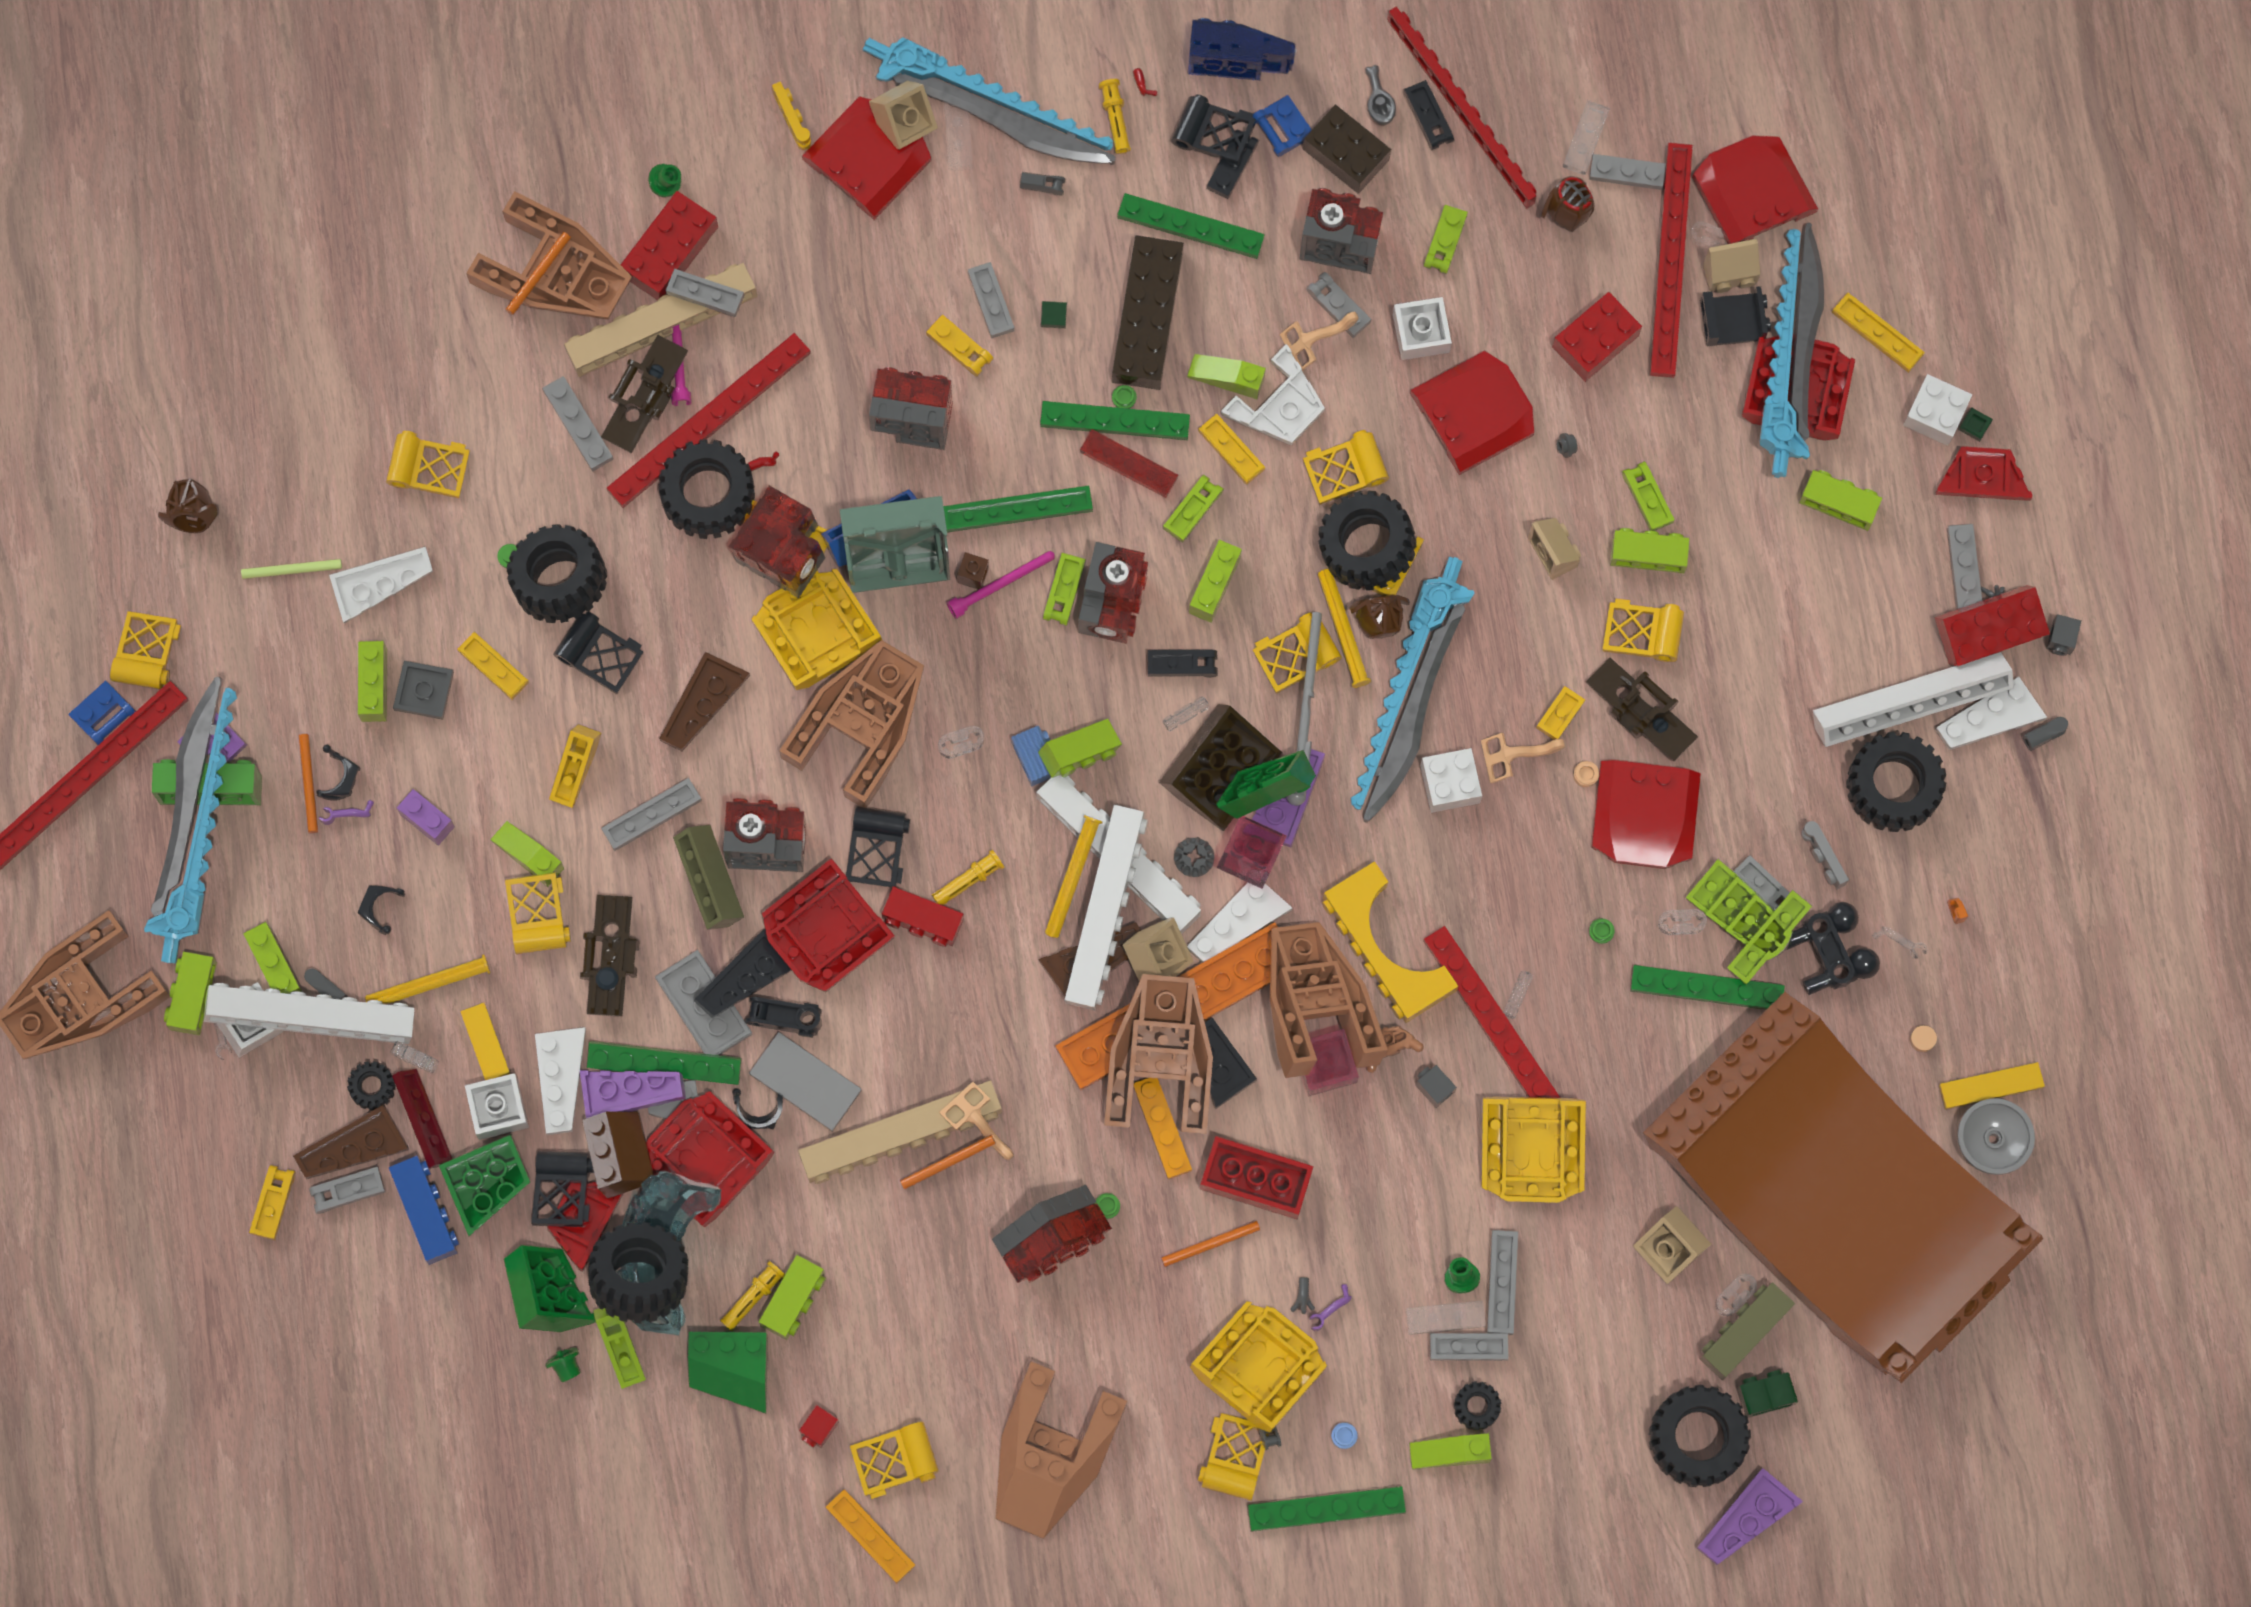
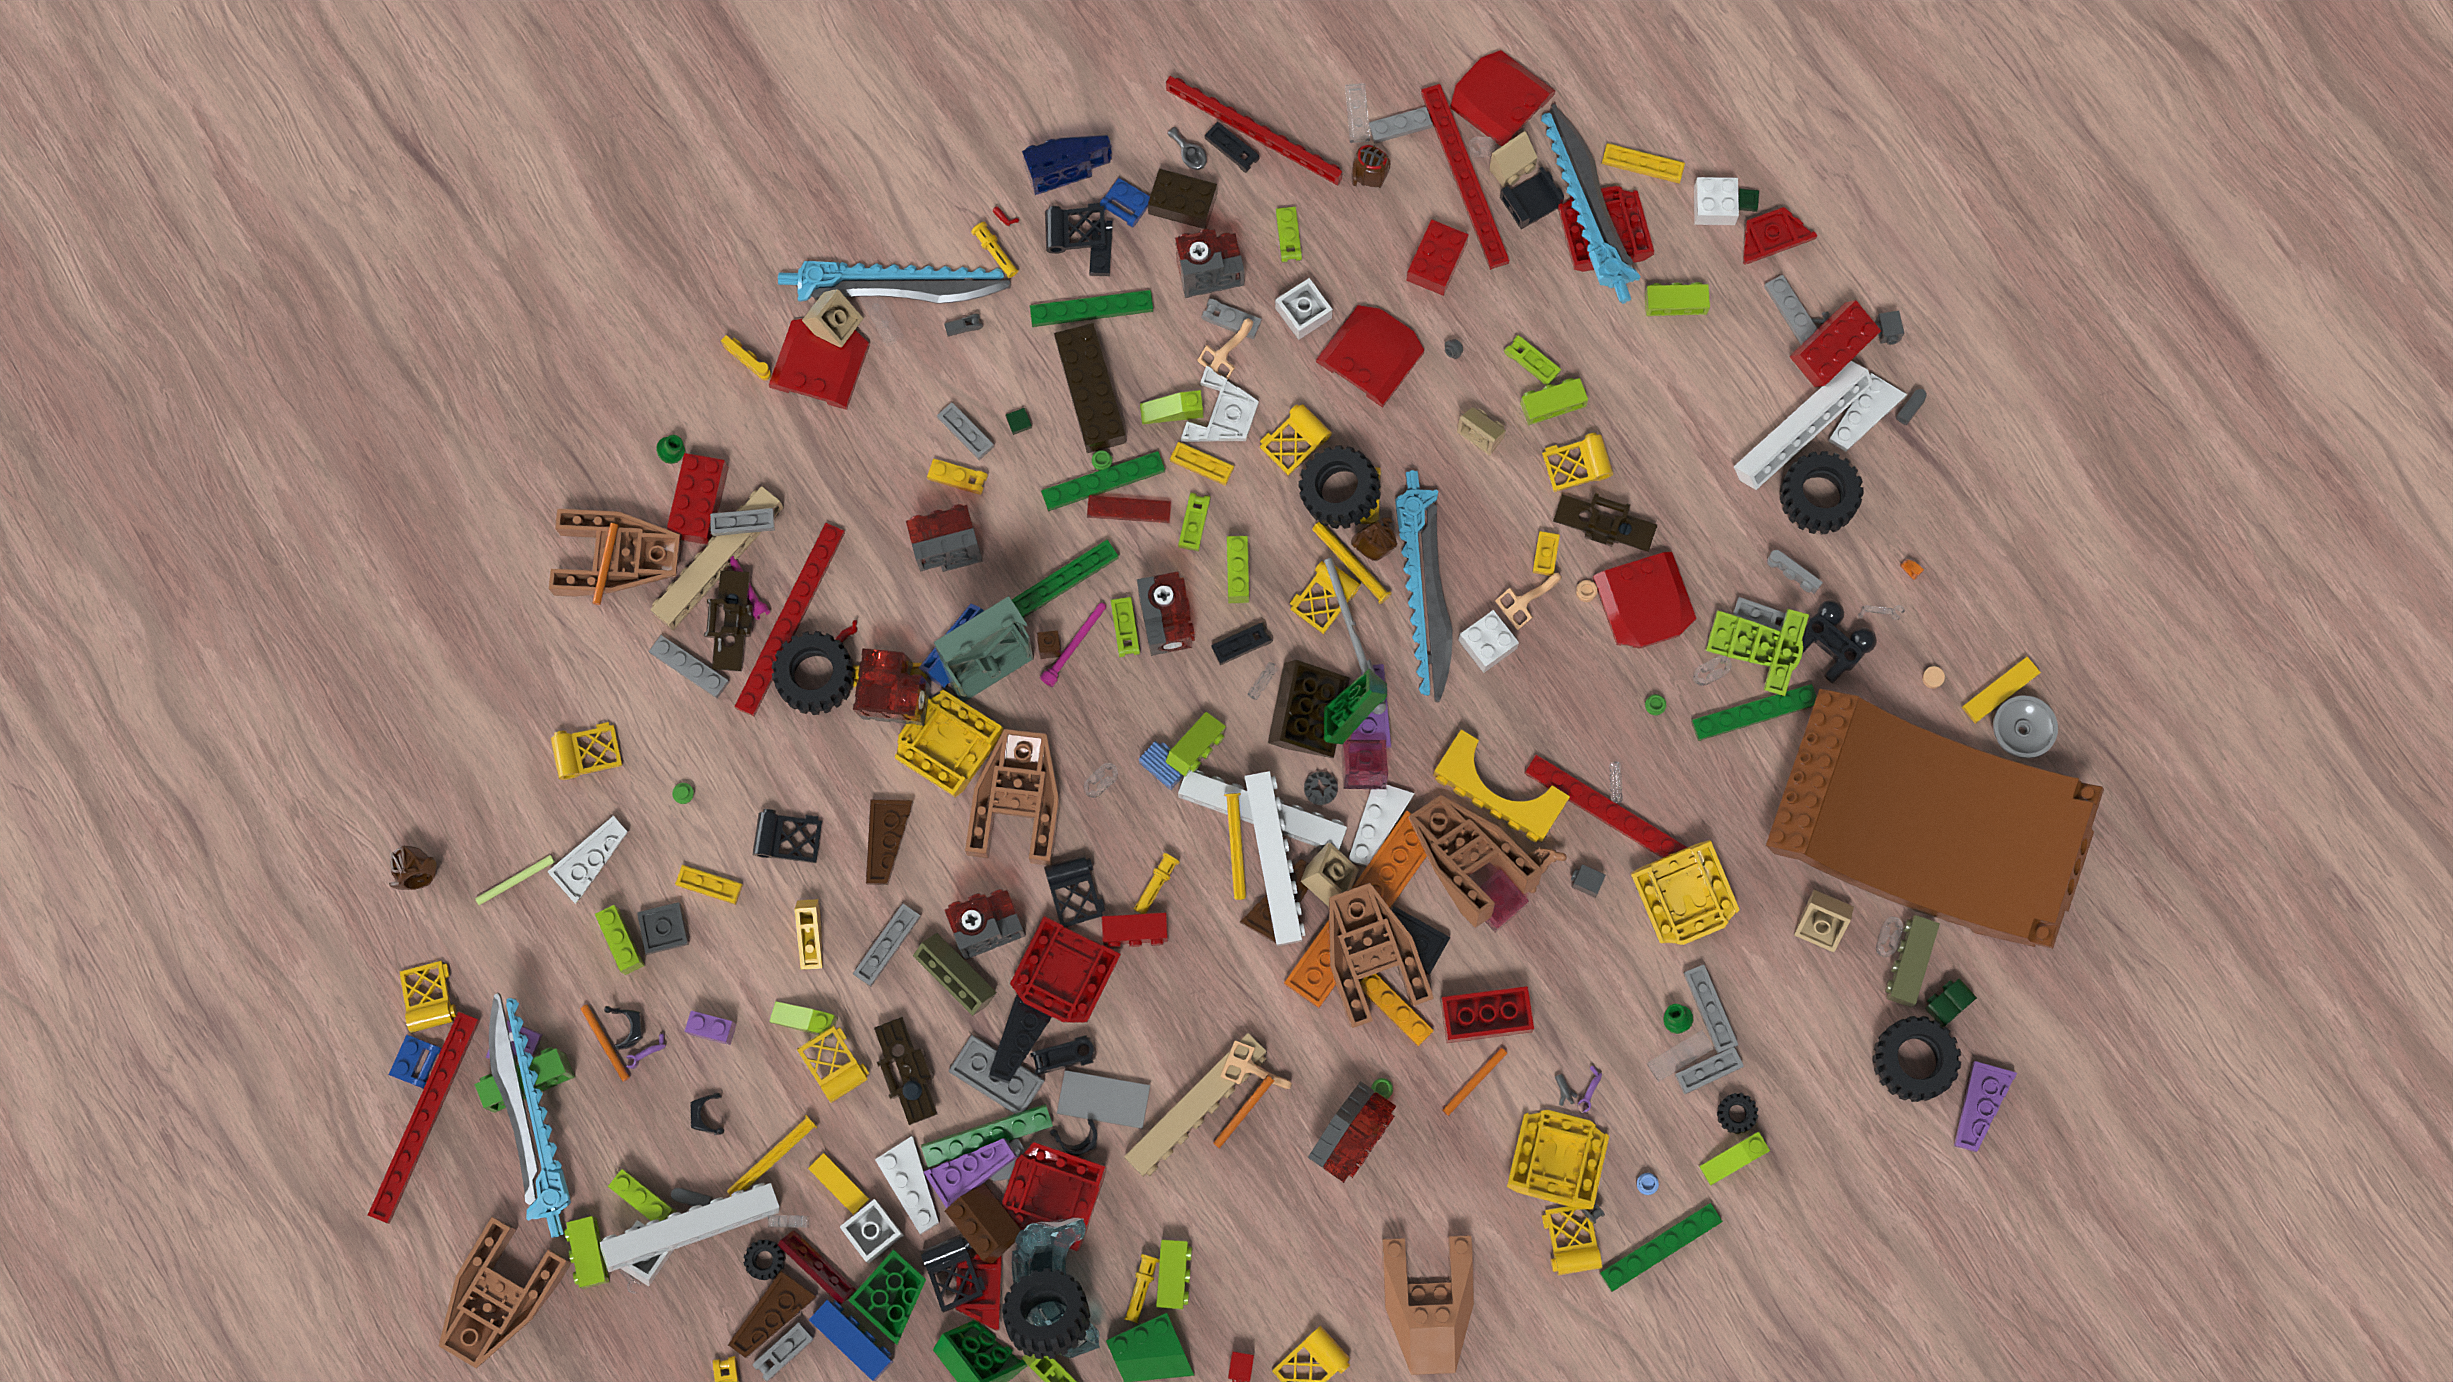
camera: 20 degrees left, 0 degrees up
(571, 596) = (710, 774): black tyre -> none

